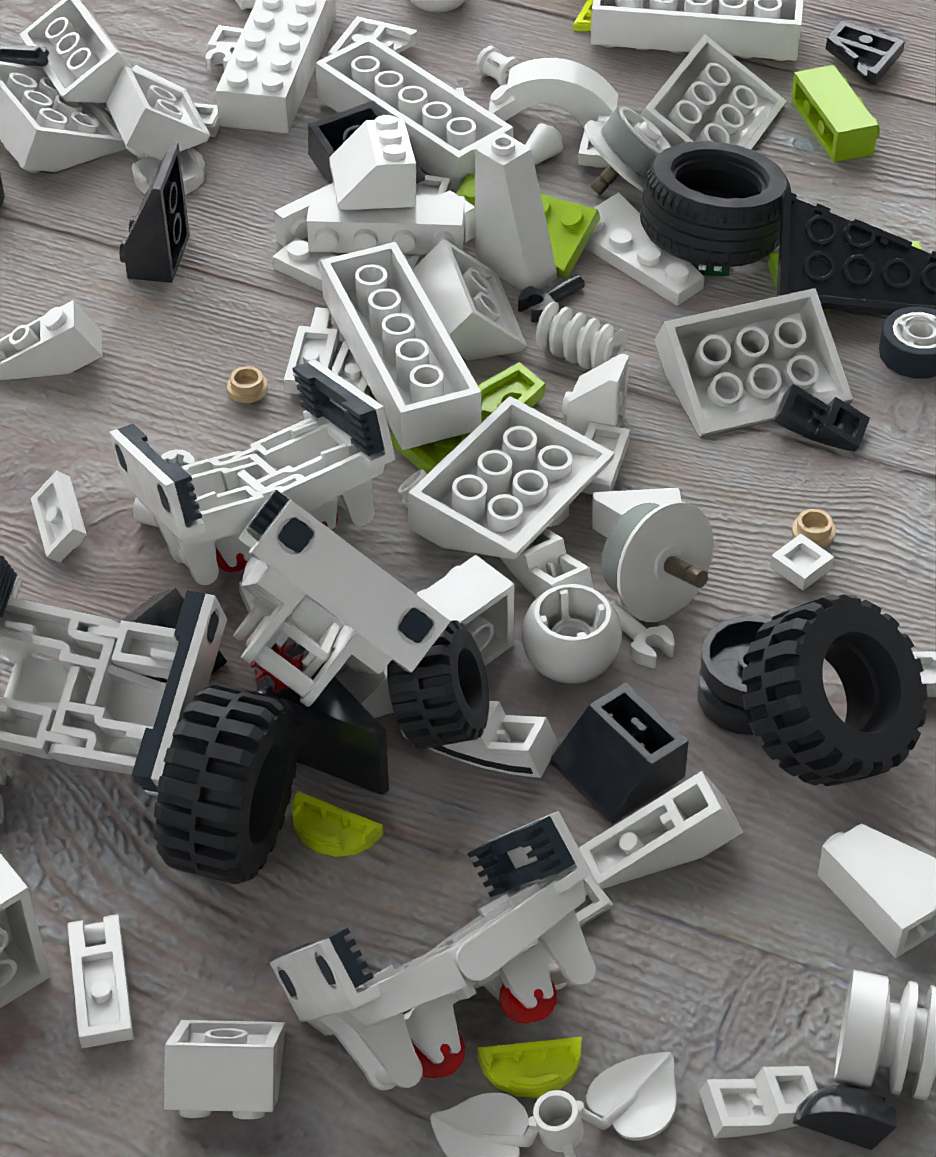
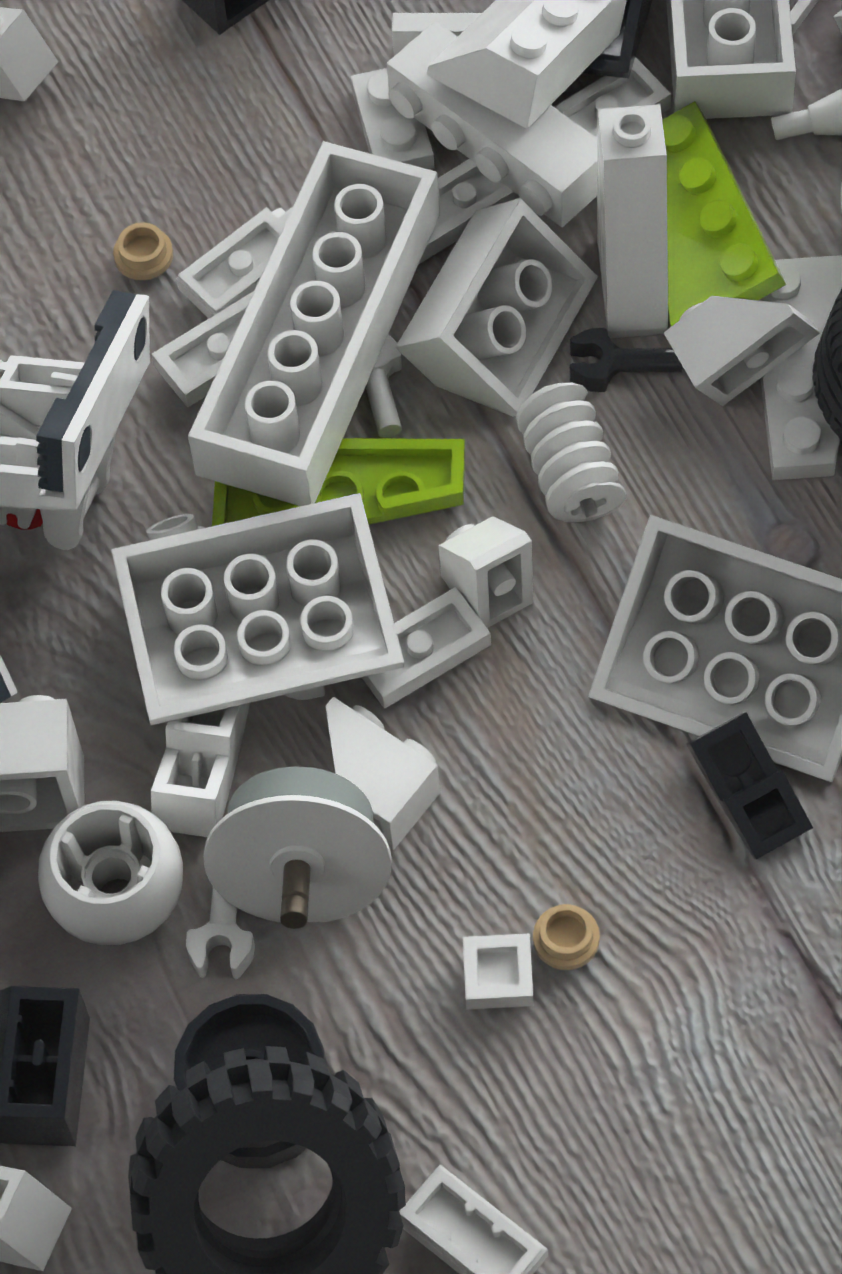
camera: 45 degrees right, 15 degrees up
(607, 247) = (736, 342): none -> white slope

